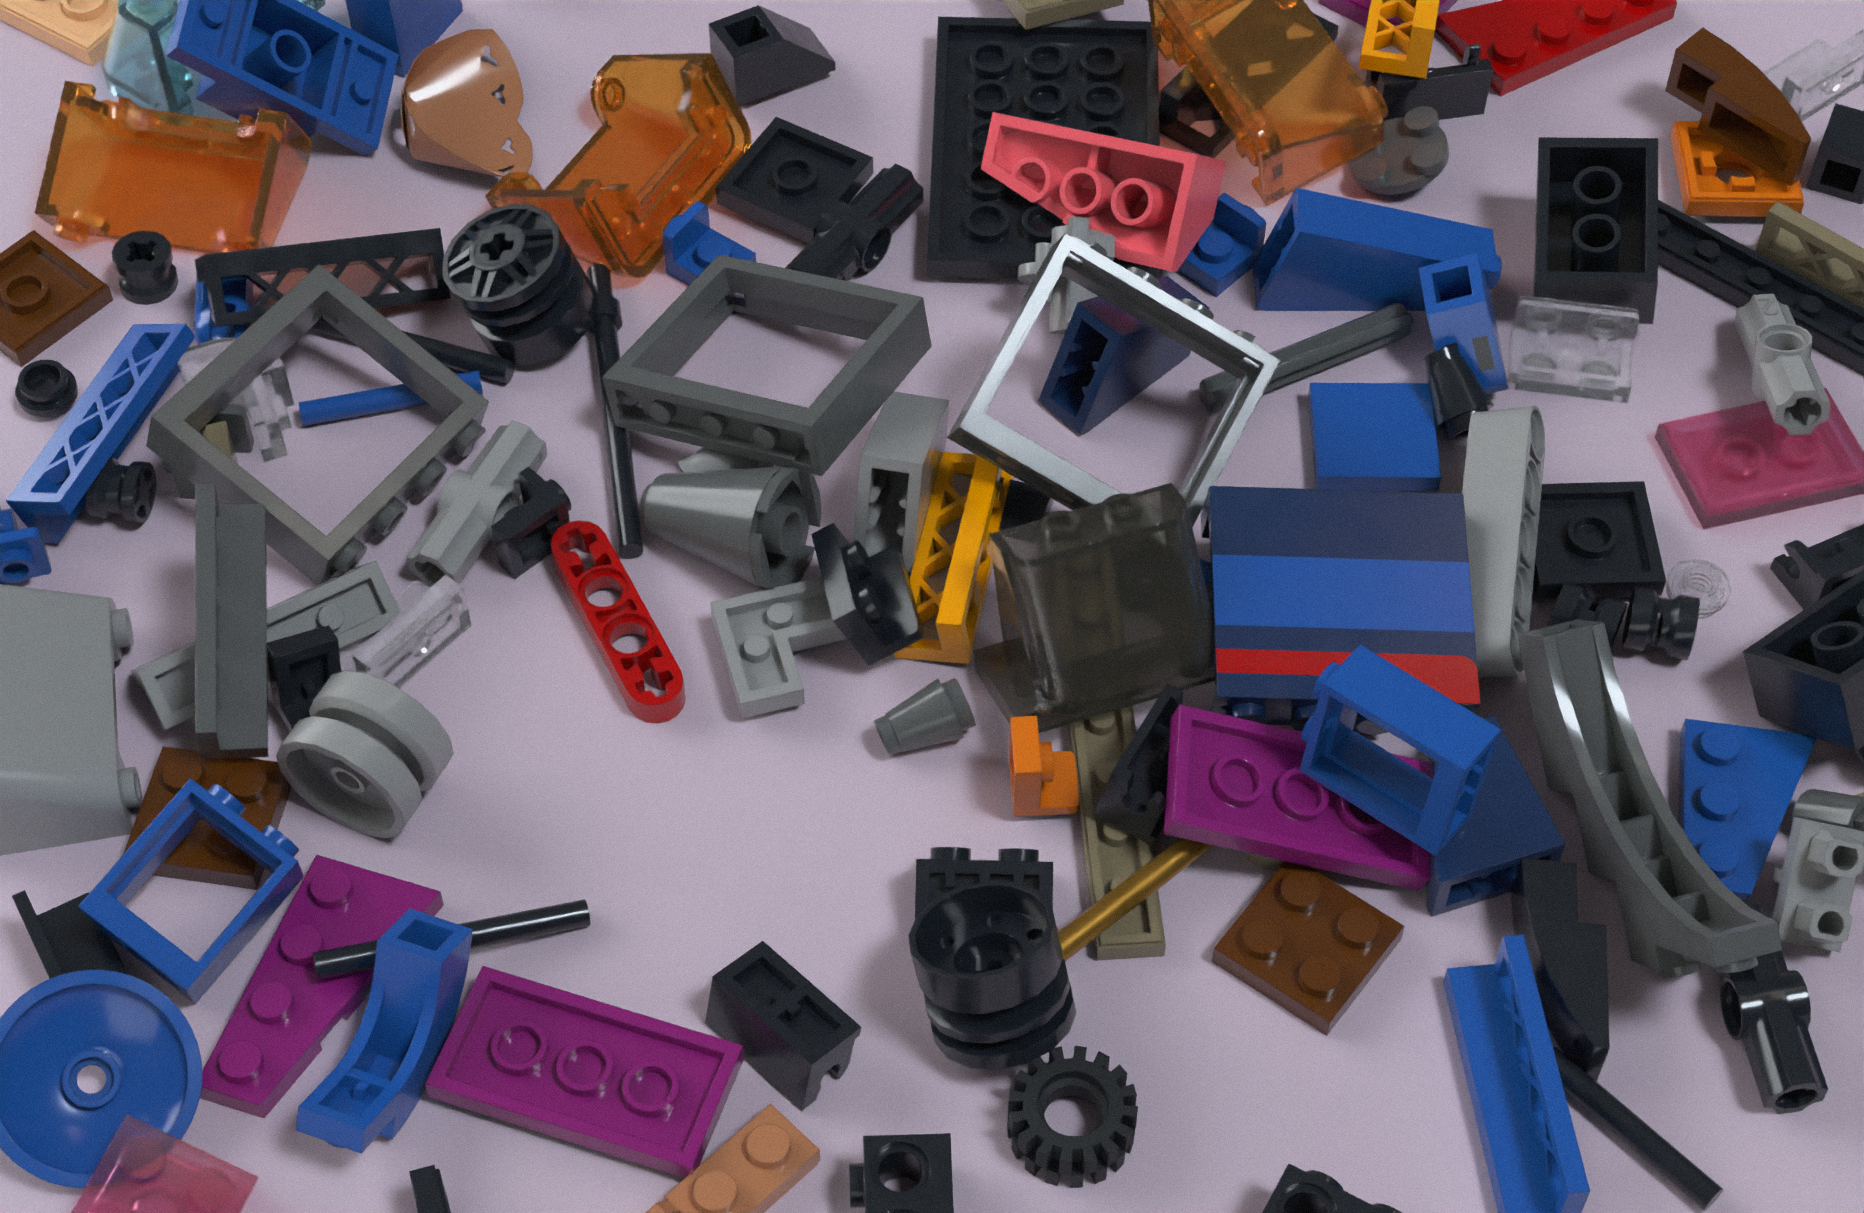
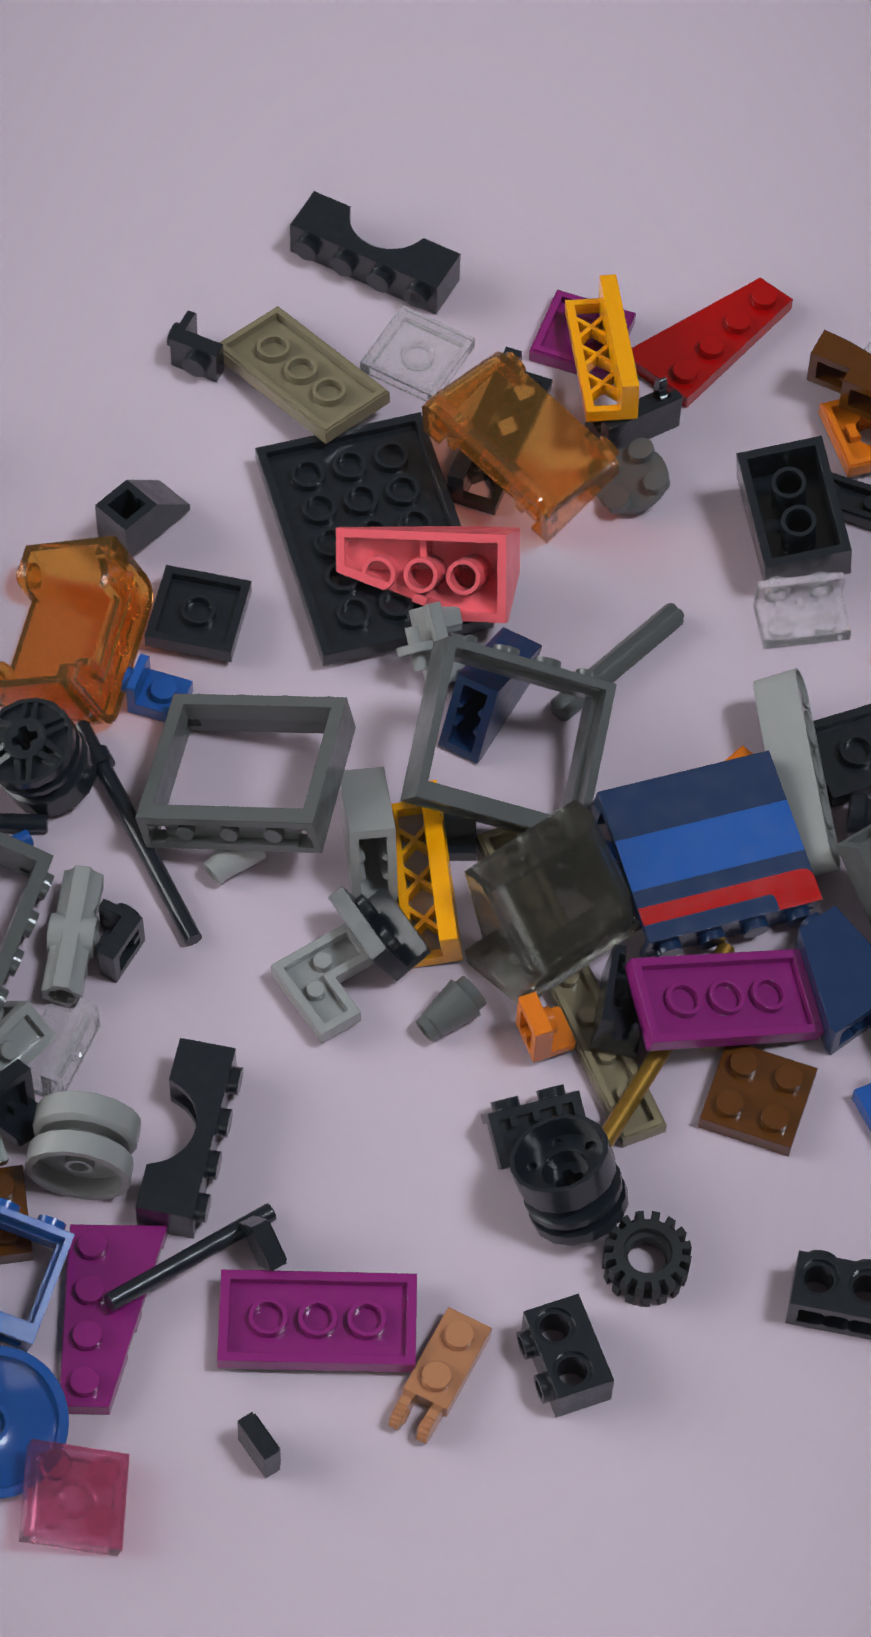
camera: 20 degrees left, 5 degrees up
(402, 1032) = (184, 1332): blue arch -> none
(476, 844) = (176, 1188): none -> black arch
(552, 946) = (263, 1242): none -> black tile
(621, 618) = (210, 991): red beam -> none
(739, 519) = (265, 898): dark grey cone -> none
(782, 1022) = (437, 1250): black hinge -> none
(862, 230) = (262, 642): black piece -> none
(1226, 246) = (535, 587): blue bracket -> none
(1358, 255) = (640, 575): blue slope -> none
(1374, 437) = (683, 712): blue tile -> none
(1376, 780) = (777, 974): blue window -> none
(1454, 391) = (733, 666): black cone -> none
(1463, 315) = (723, 614): blue slope -> none

